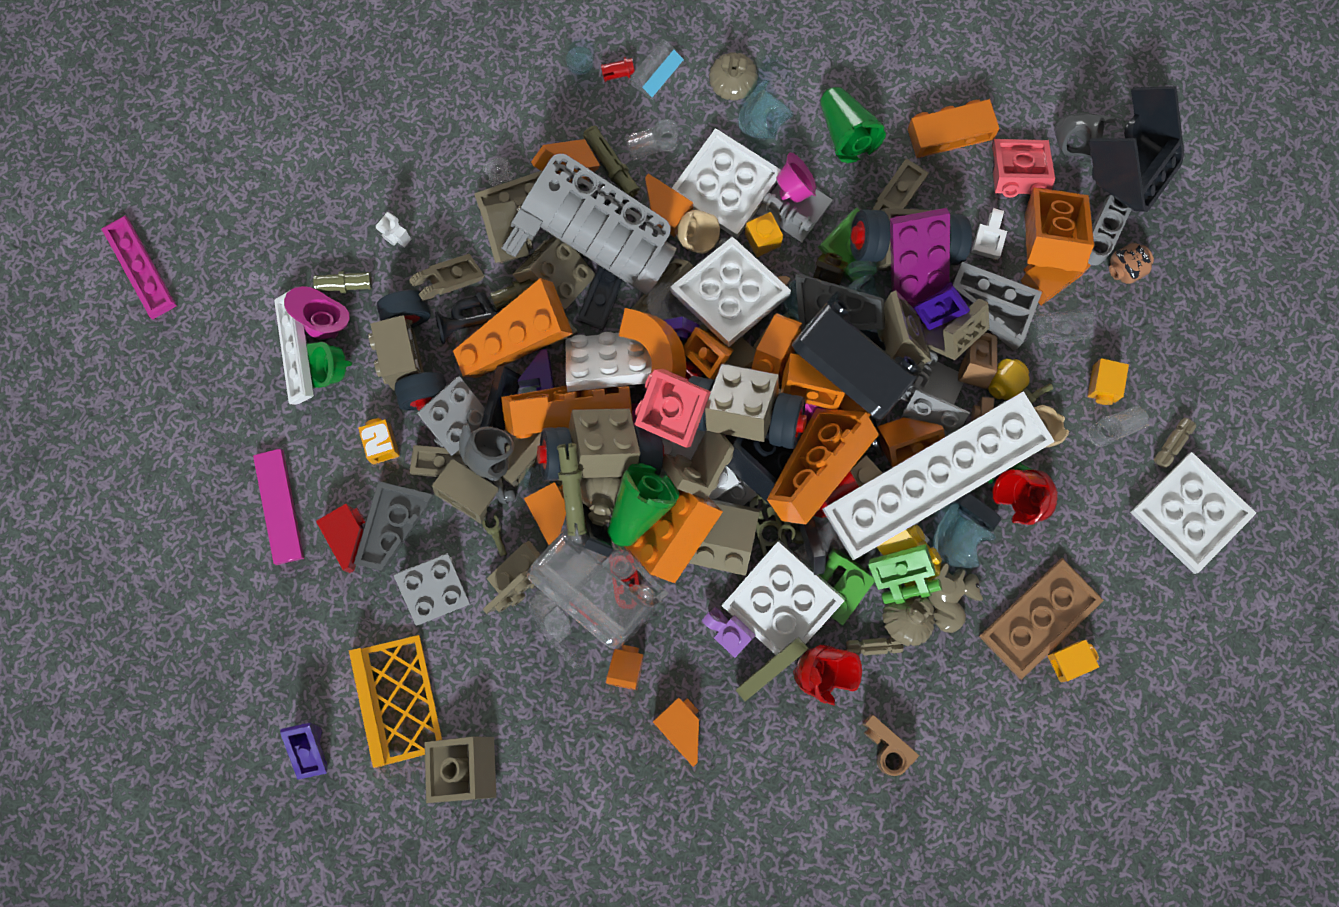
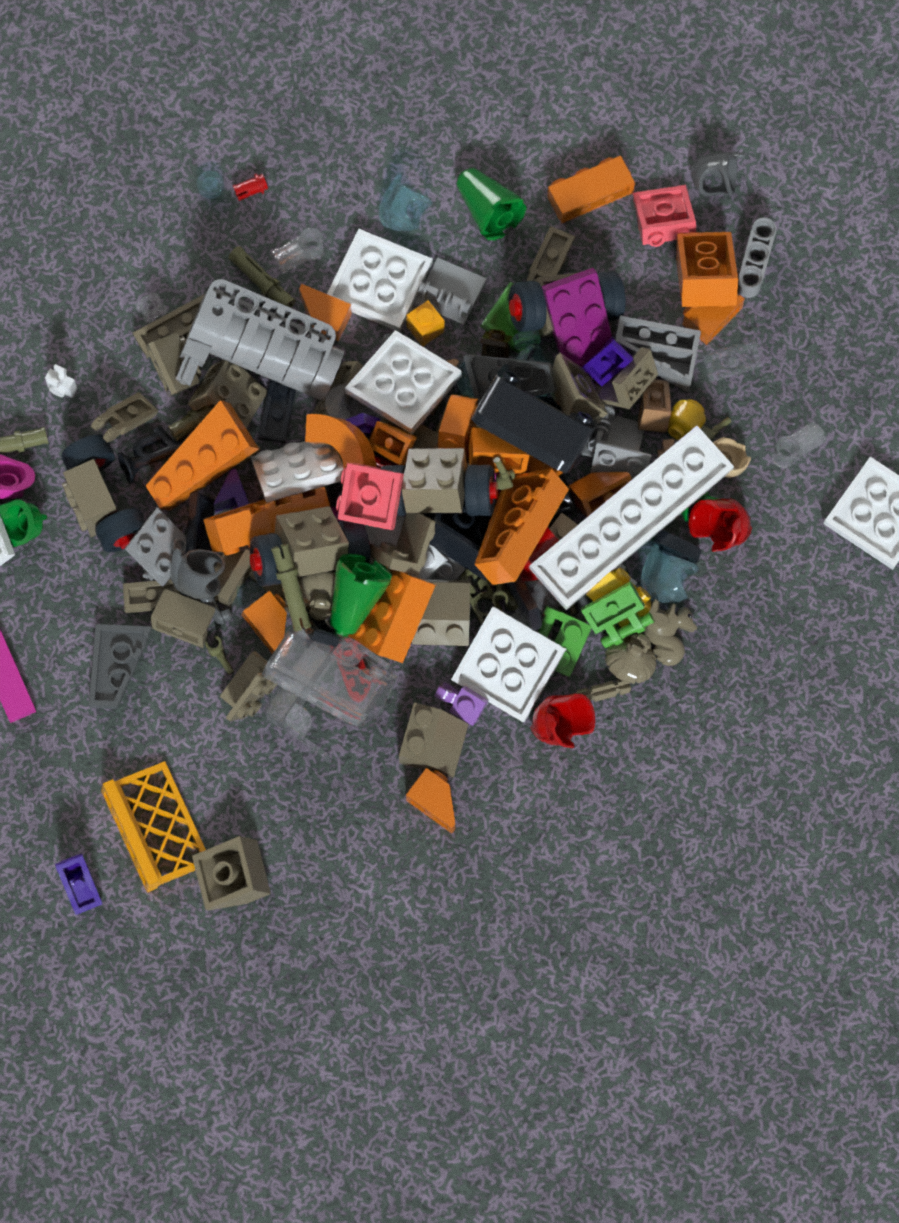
camera: 15 degrees left, 5 degrees down
(343, 534) = (73, 679): red slope -> none
(378, 441) = (88, 586): brick -> none
(431, 589) = (169, 715): light grey hinge -> none
(576, 149) = (227, 271): orange slope -> none
(625, 668) = (371, 753): orange slope -> none
(656, 69) = (289, 180): slope -> none
(692, 666) = (433, 740): none -> dark tan slope
(698, 231) = (361, 331): tan hair -> none
(733, 83) = (369, 181): dark tan hair -> none
(771, 669) = (509, 727): olive beam -> none
(795, 180) = (446, 265): dark pink piece -> none
(814, 410) = (504, 477): none -> olive hand
(879, 732) = (622, 767): medium nougat plate -> none
(990, 238) = (645, 289): white plate -> none
(1041, 618) = (756, 637): medium nougat tile -> none
(1074, 660) = (792, 668): light orange brick -> none
(1108, 381) = (780, 405): light orange brick -> none
(1131, 263) = (784, 289): nougat head -> none
(1150, 154) = (787, 184): black windscreen -> none
(1175, 442) = (854, 451): dark tan axle -> none

